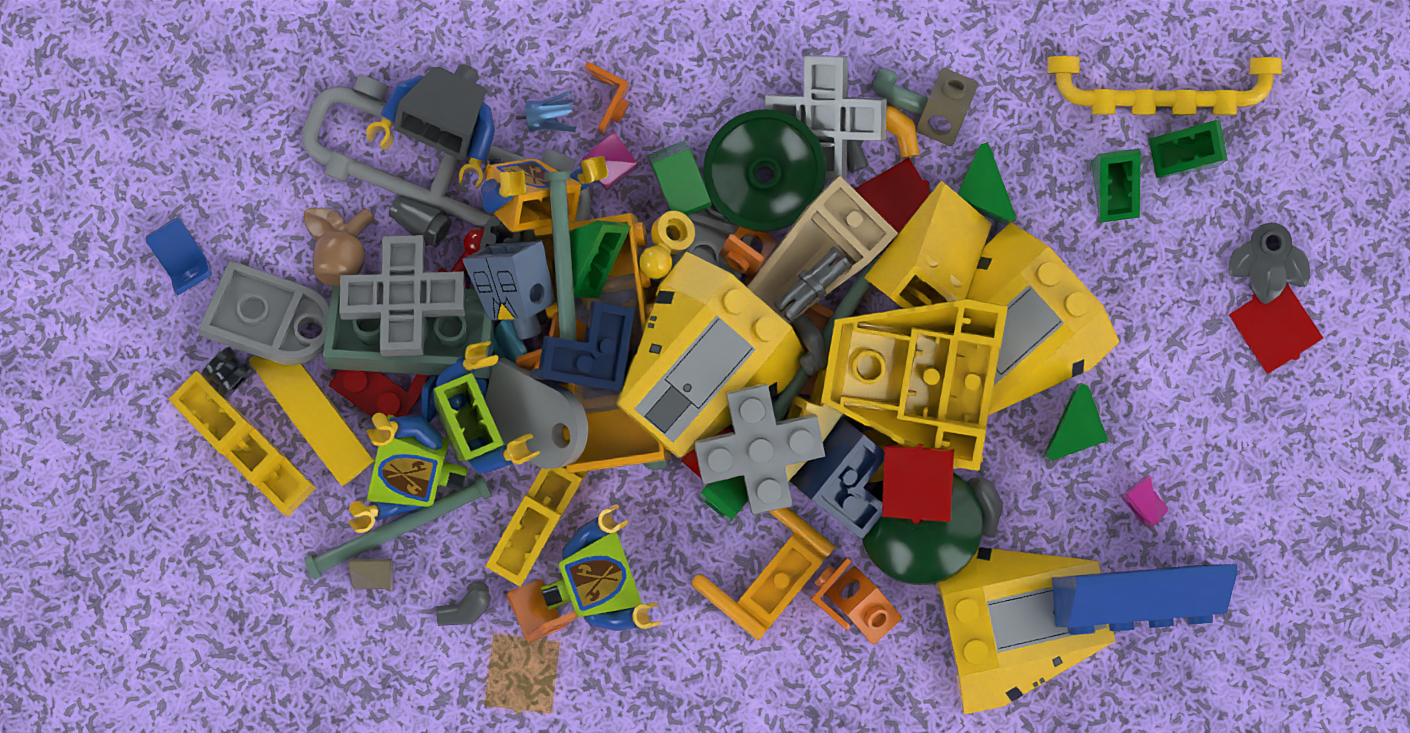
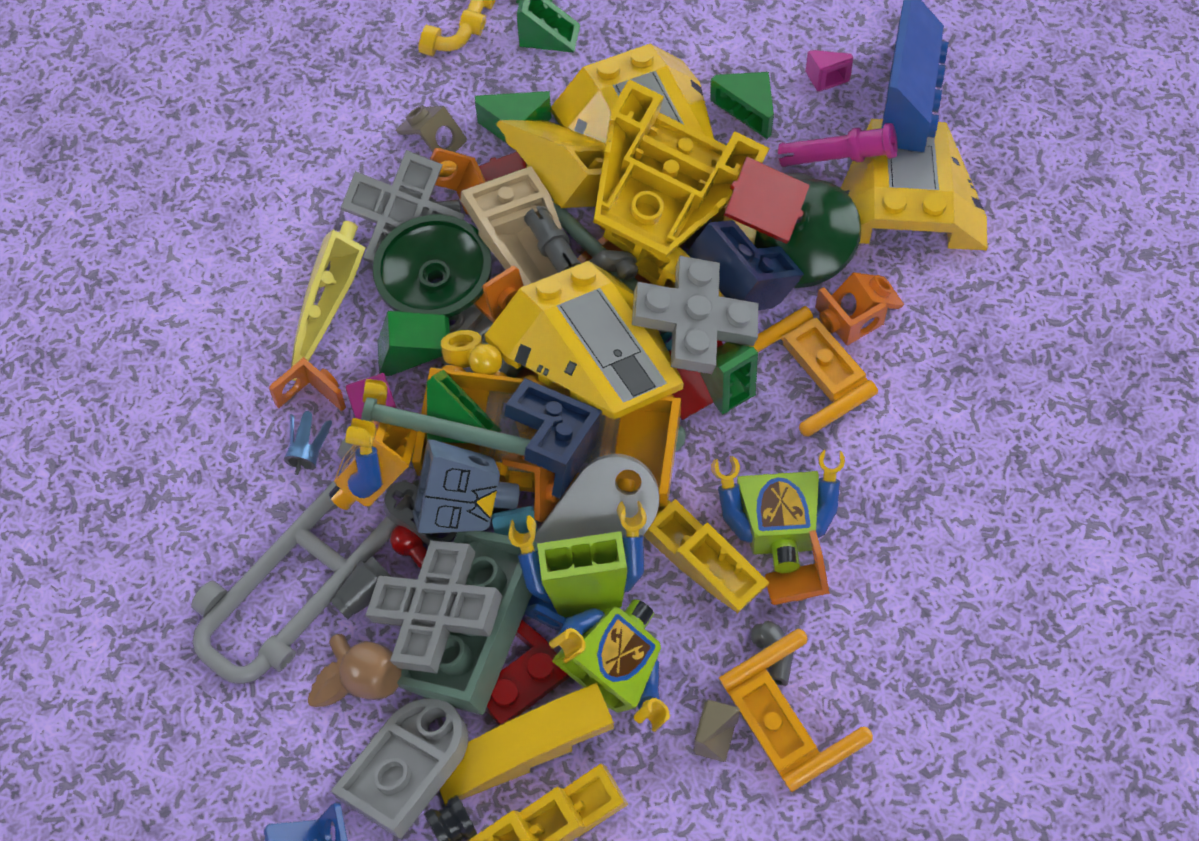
camera: 75 degrees left, 25 degrees down
(394, 625) = (776, 723): none -> light orange plate
(397, 527) = (689, 788): sand green bar -> none
(442, 112) = (265, 526): dark grey torso -> none
(522, 674) = (858, 617): clear yellow piece -> none
(728, 72) = (344, 262): none -> light yellow piece
(887, 169) = (466, 173): none -> orange bracket
(898, 96) = (388, 169): sand green arm -> none
(1034, 553) = (855, 145): none -> dark pink pin

